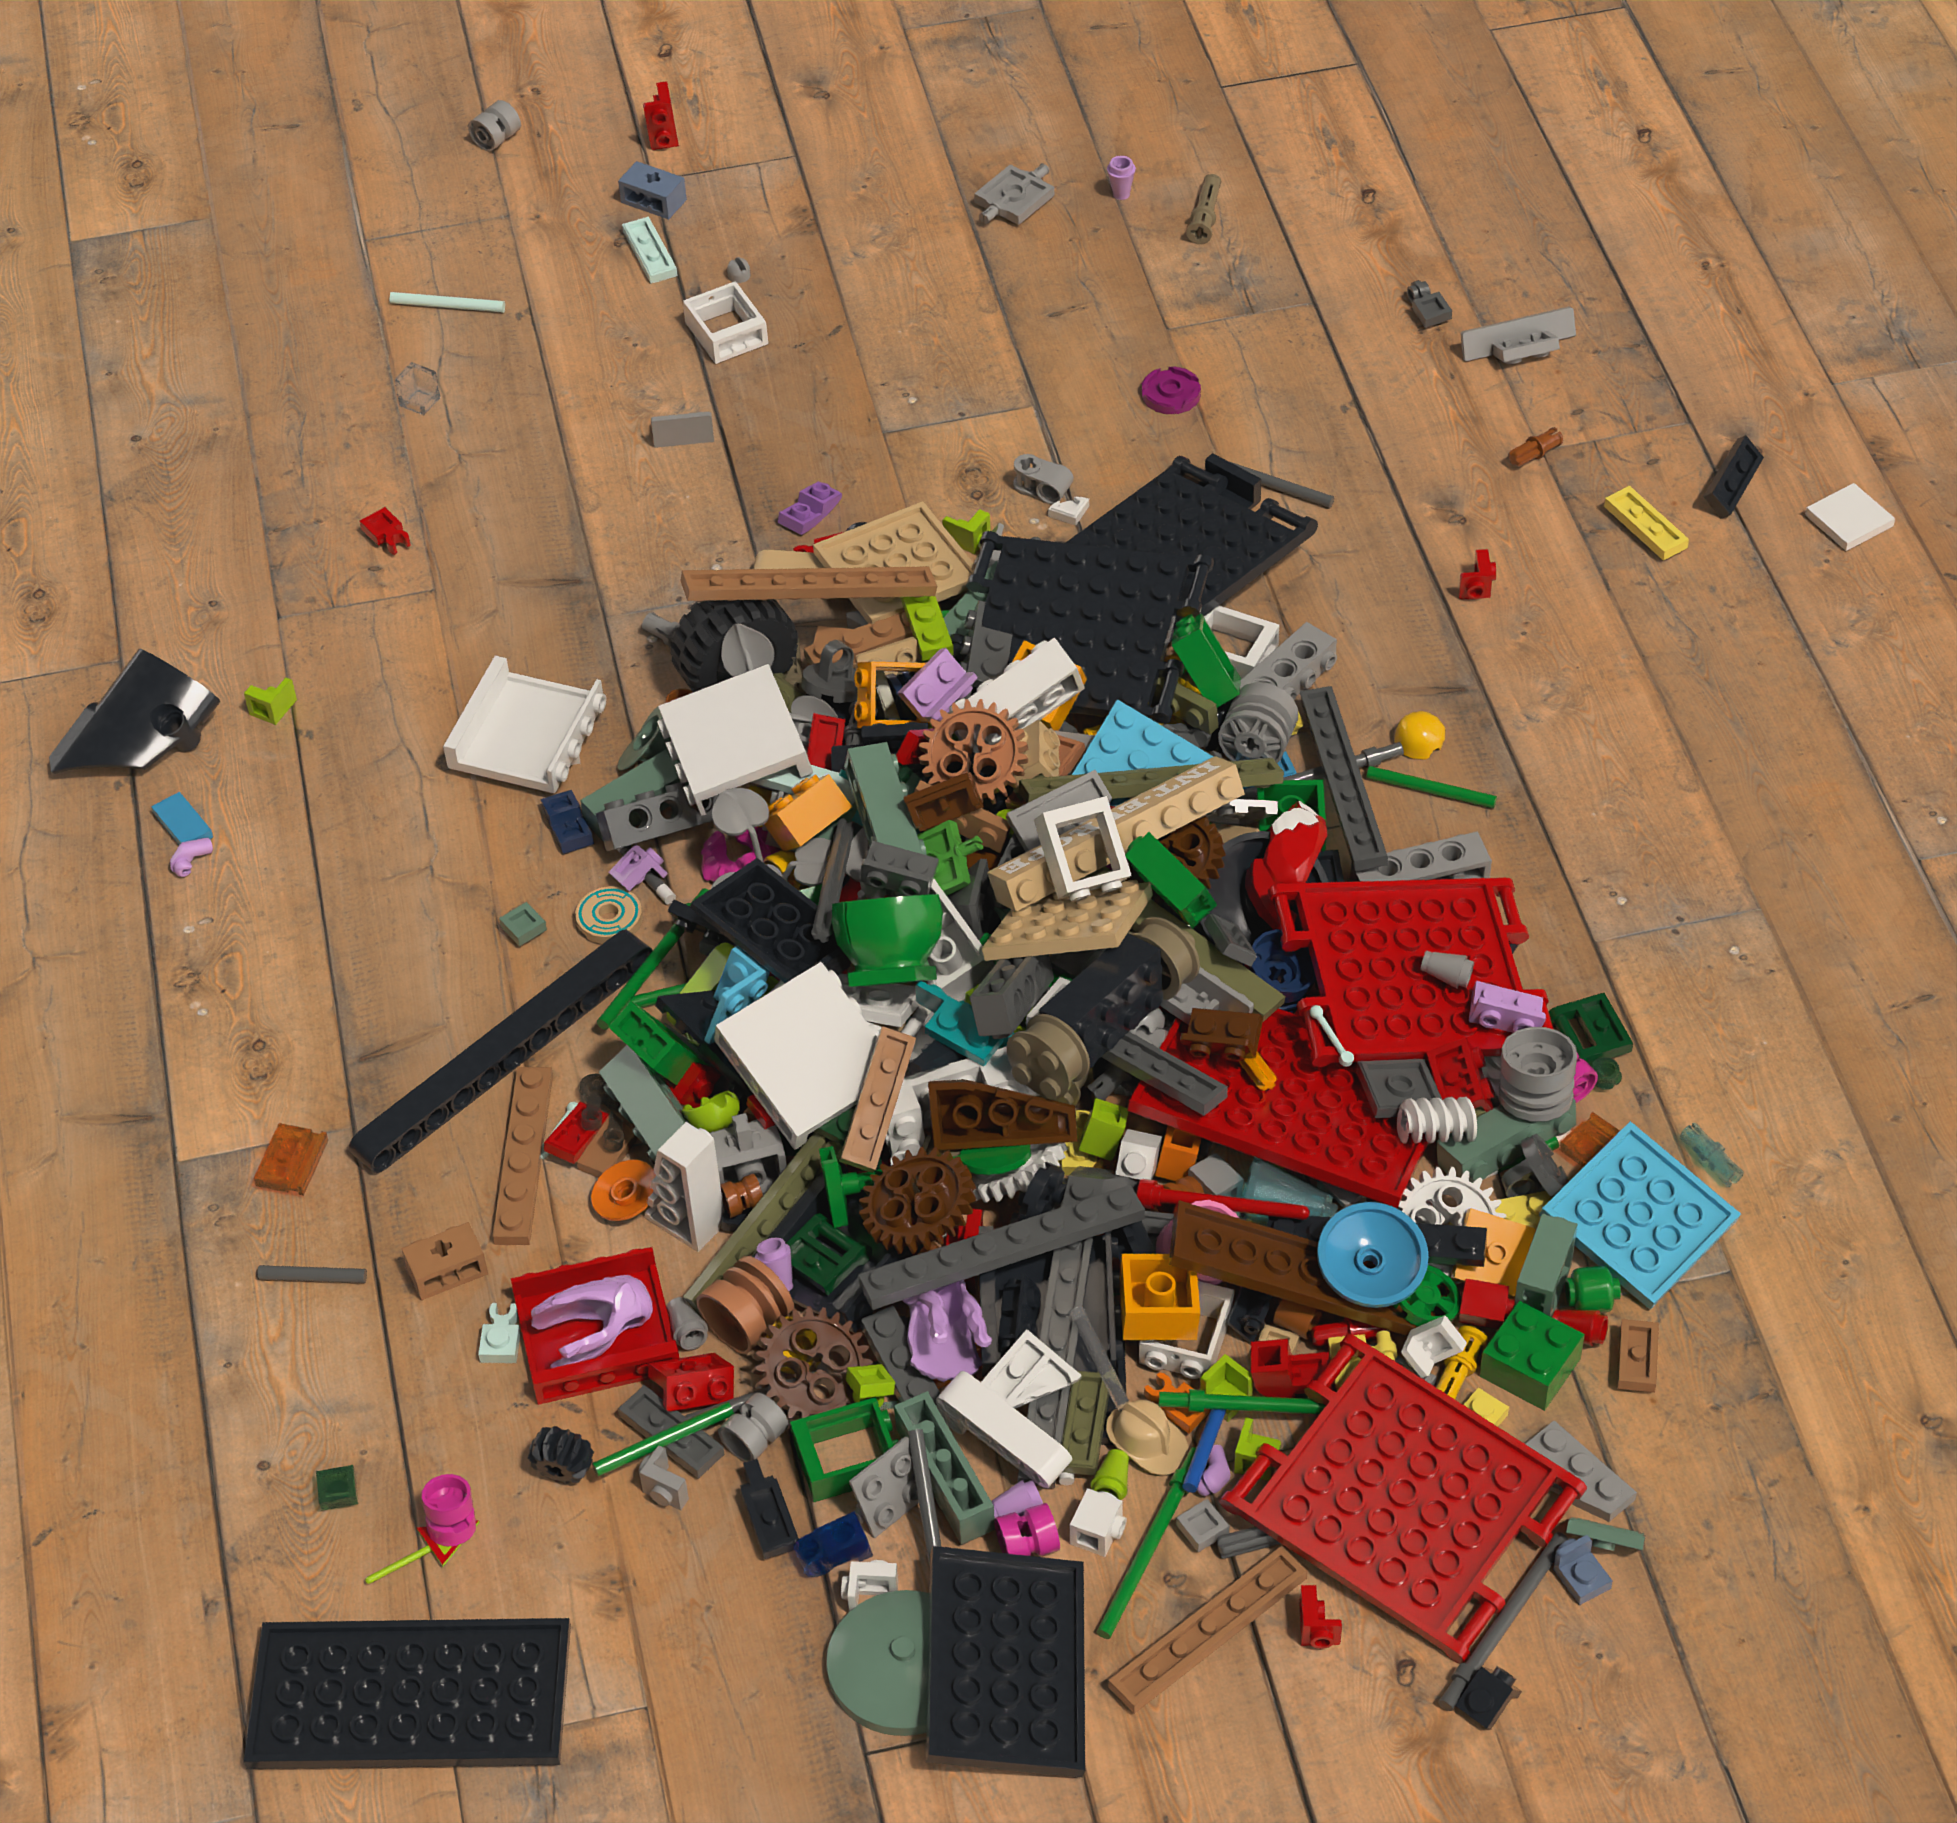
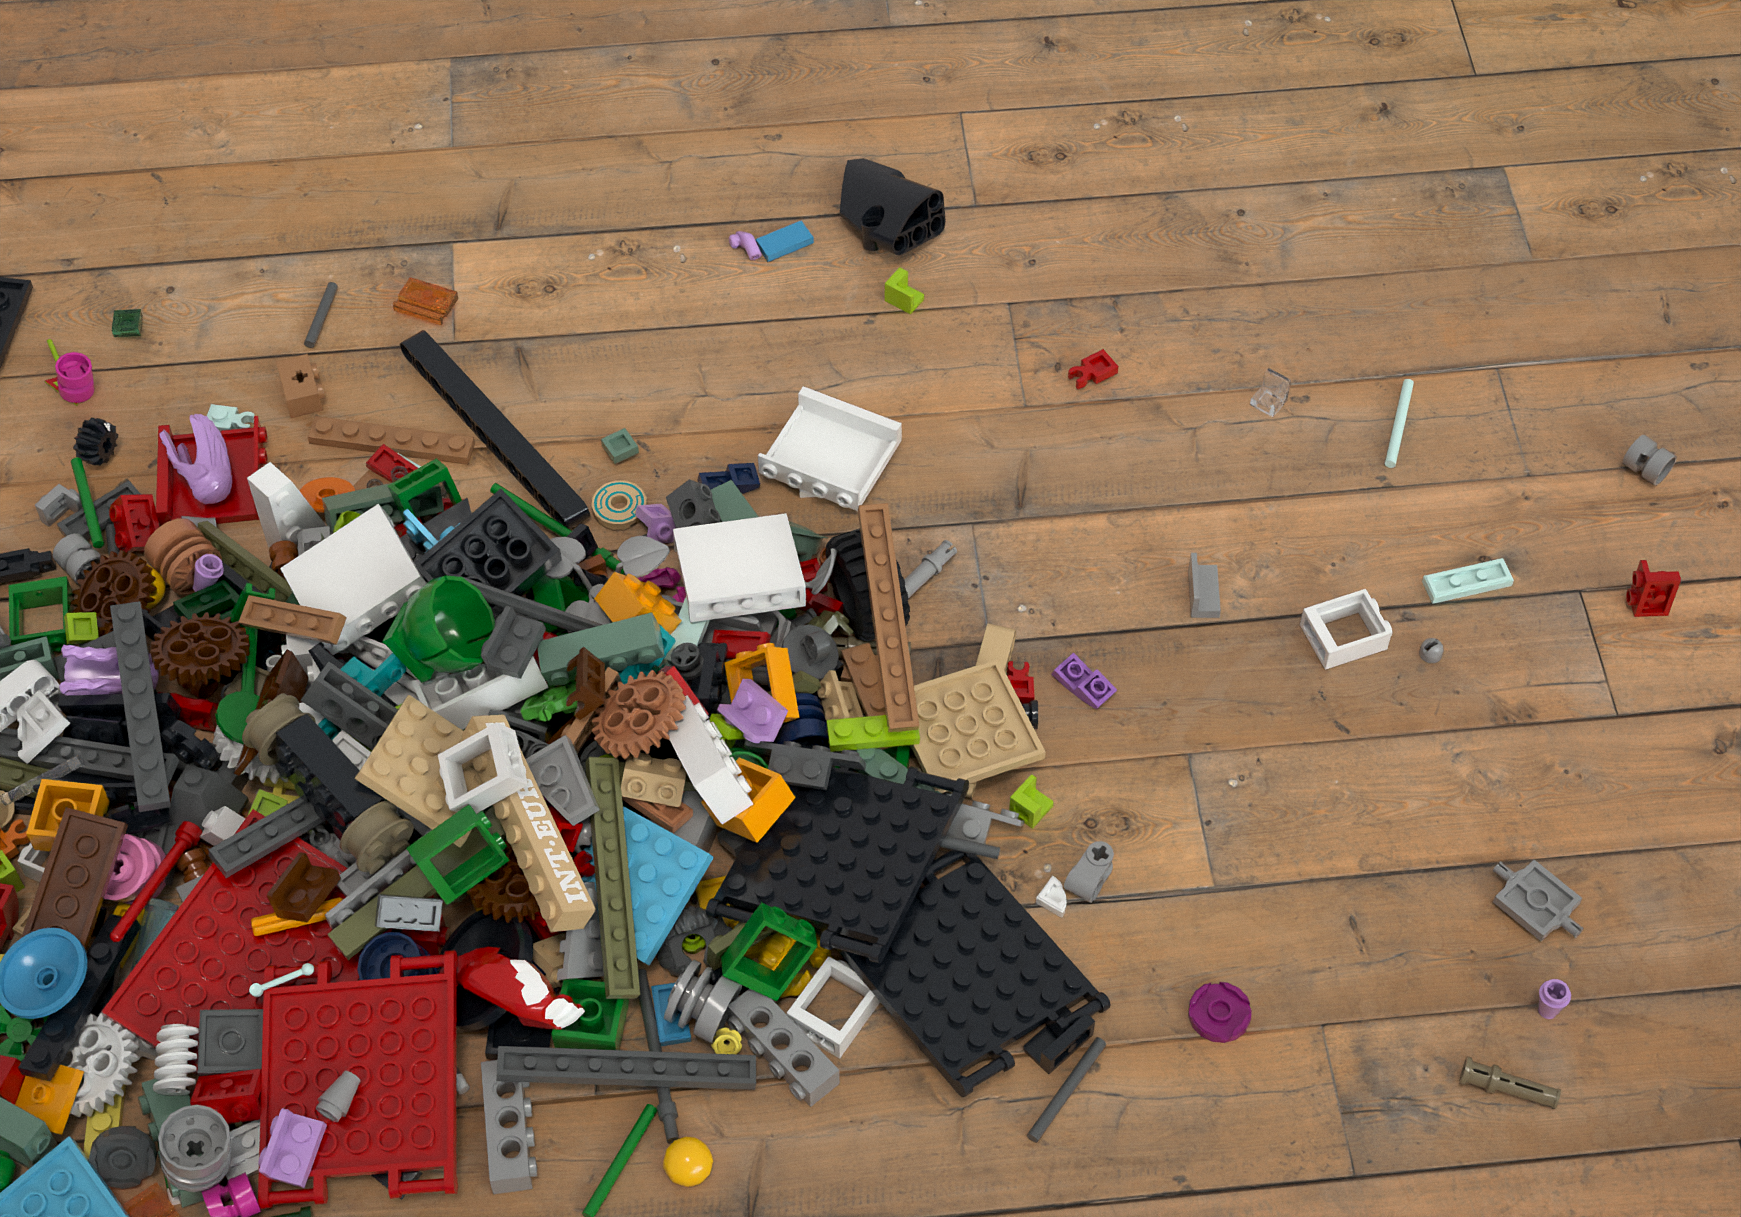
camera: 95 degrees right, 5 degrees up
(652, 190) = (1550, 583): sand blue brick -> none

